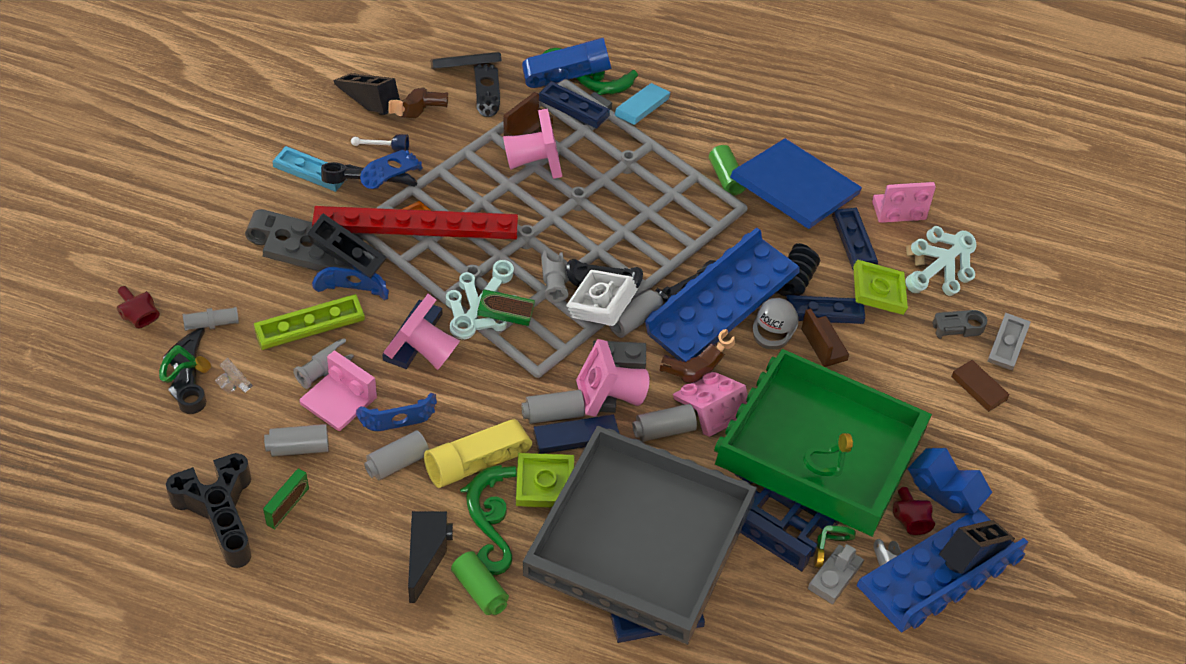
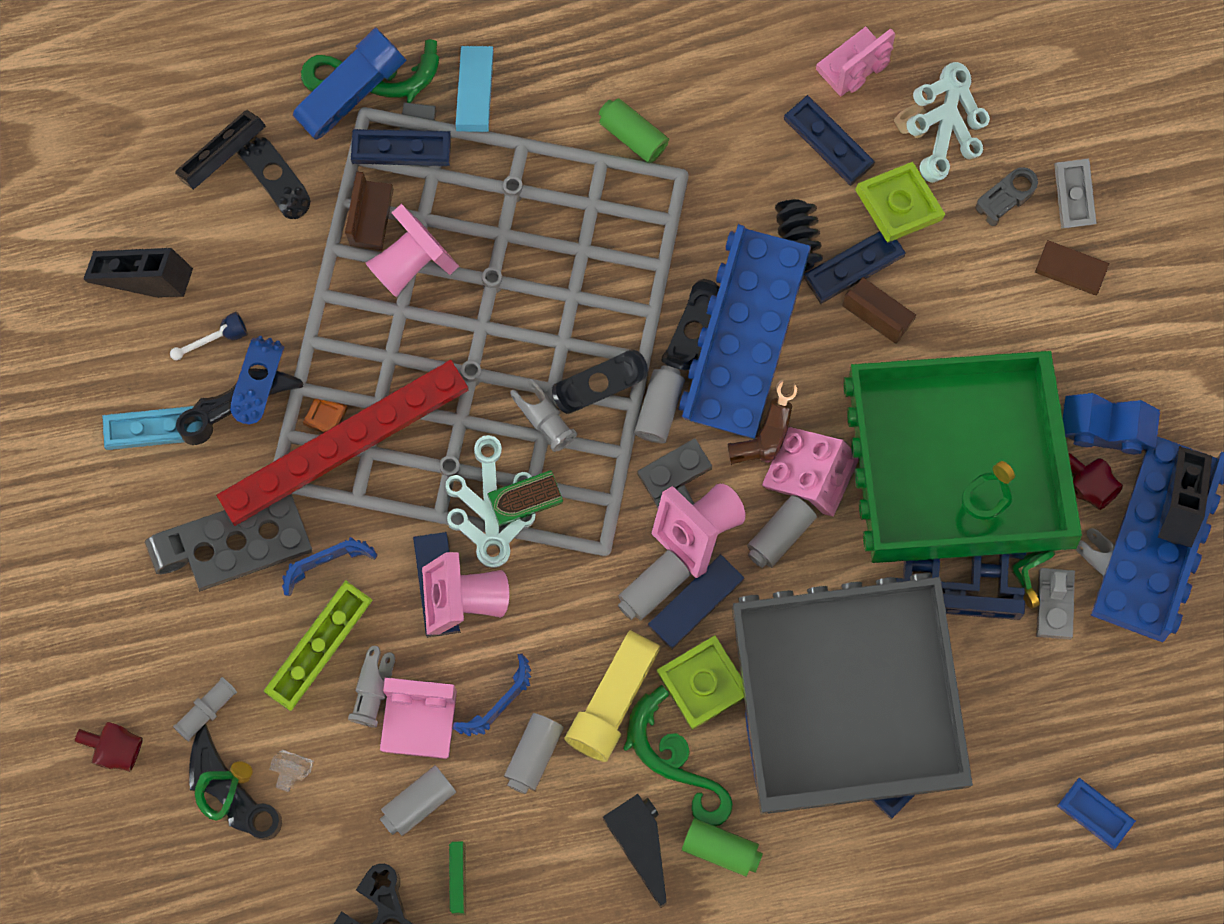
camera: 25 degrees left, 25 degrees up
(345, 246) = (299, 534): black slope -> none
(416, 102) = (207, 255): reddish brown arm -> none
(602, 297) = (608, 406): white brick -> none
(777, 317) = (817, 321): light grey helmet -> none
(796, 183) = (725, 106): blue tile -> none

